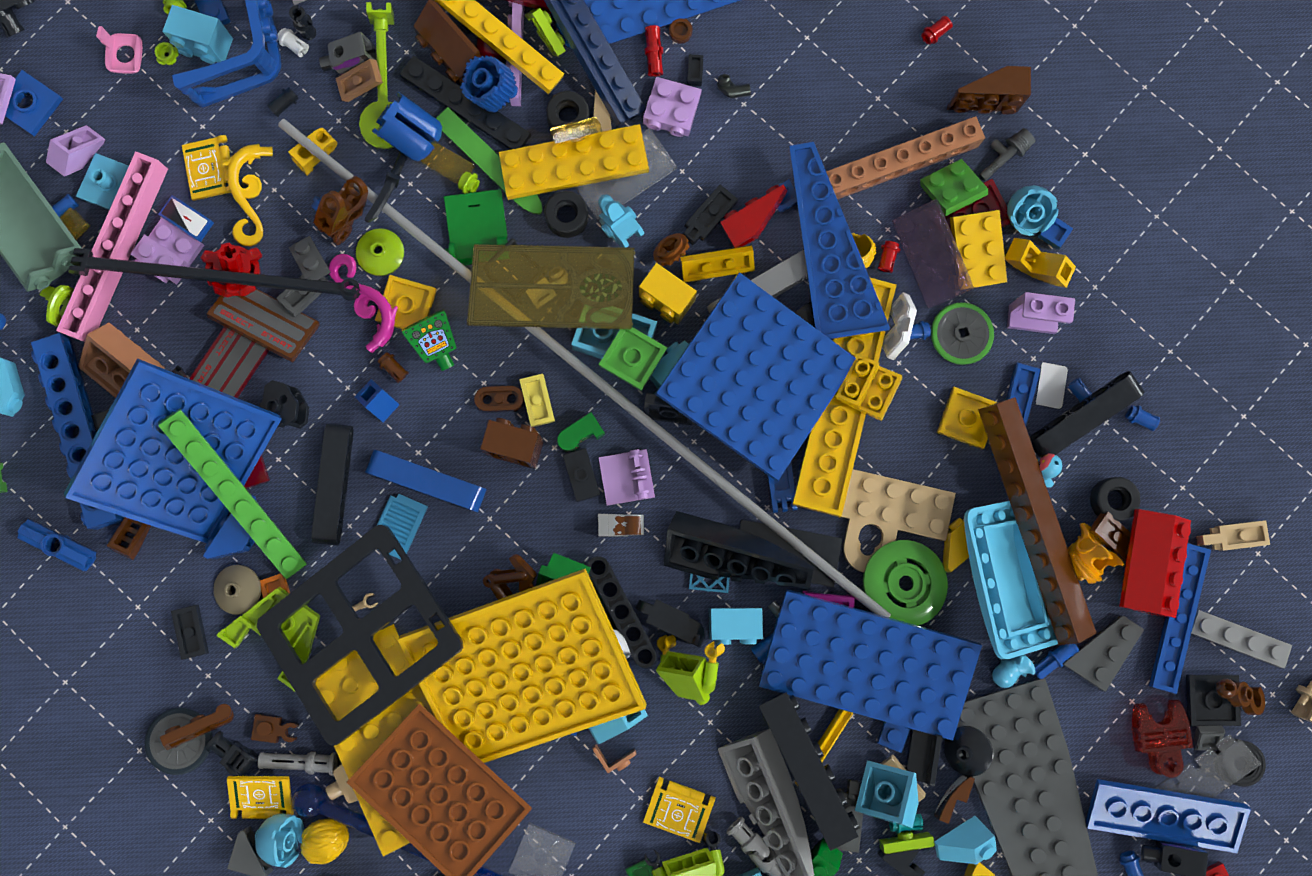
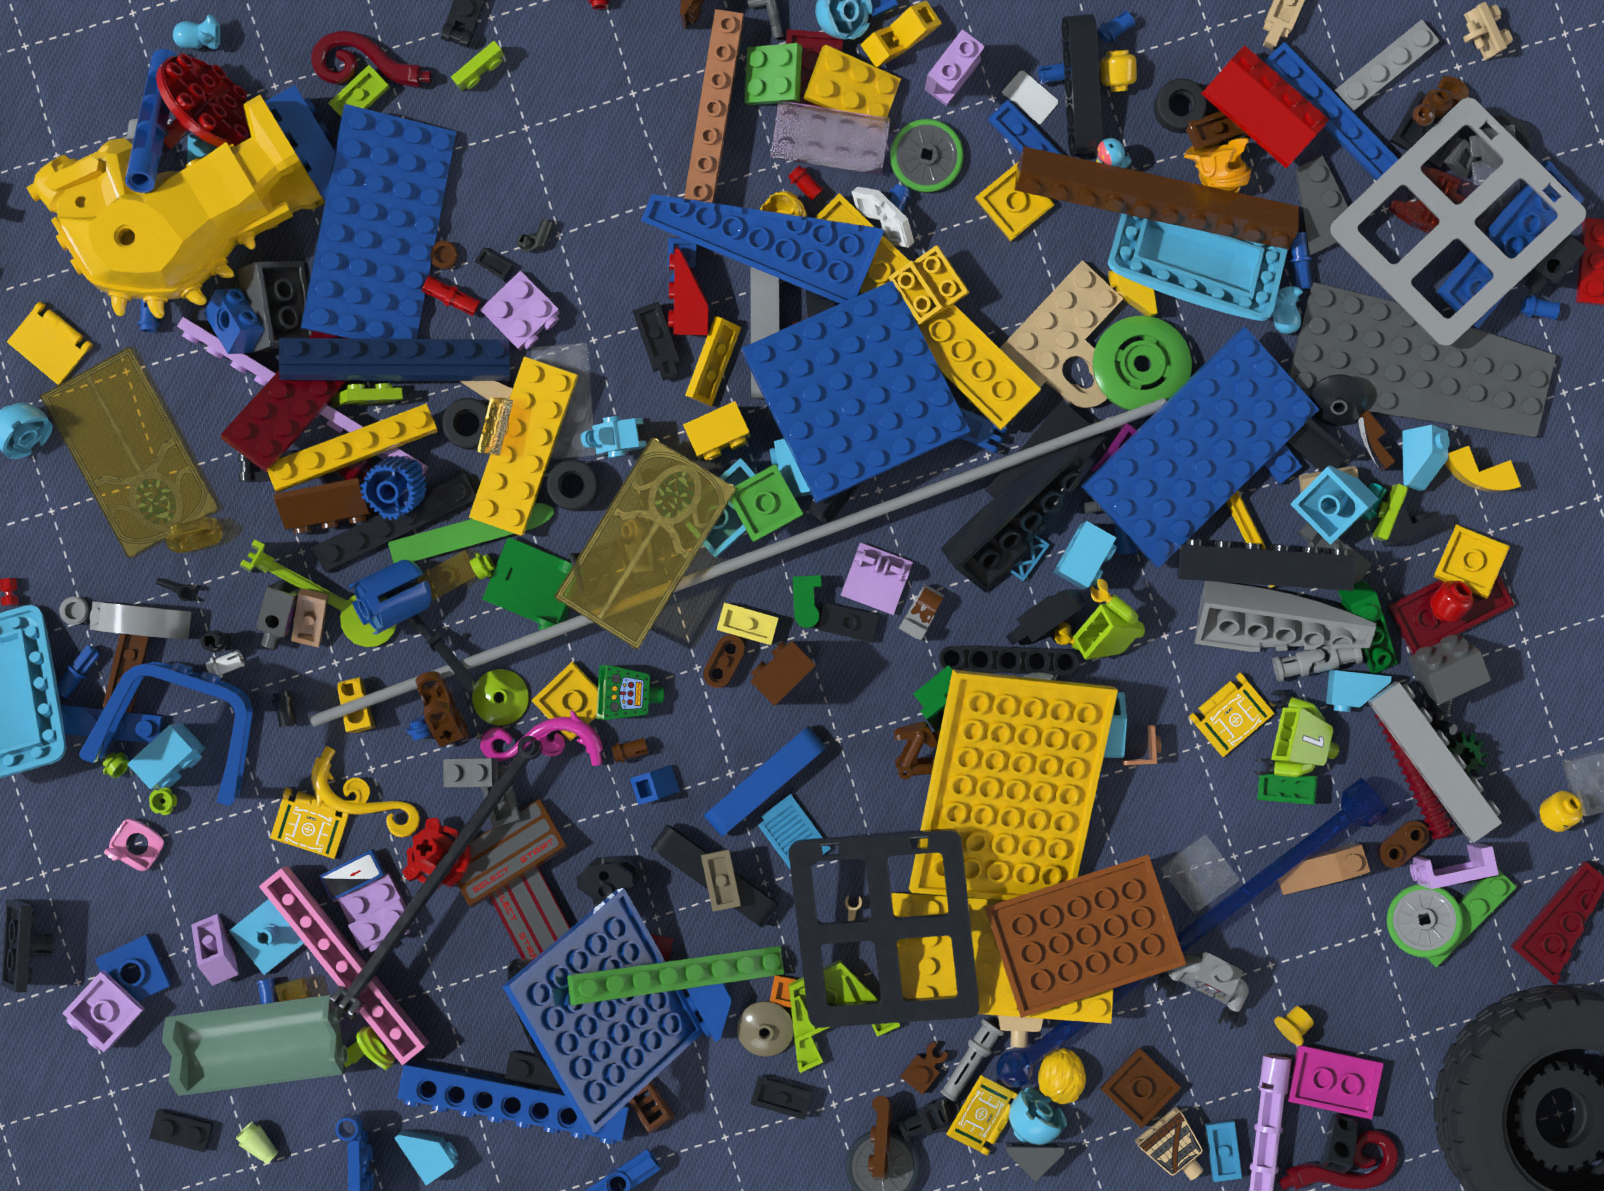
camera: 55 degrees left, 5 degrees up
(110, 357) = (471, 1023): nougat slope -> none
(328, 488) = (720, 880): none -> dark tan plate
(675, 244) = (664, 394): dark orange gear -> none
(1112, 437) = (1118, 70): none -> yellow head
(1161, 764) = (1456, 222): none -> light grey window

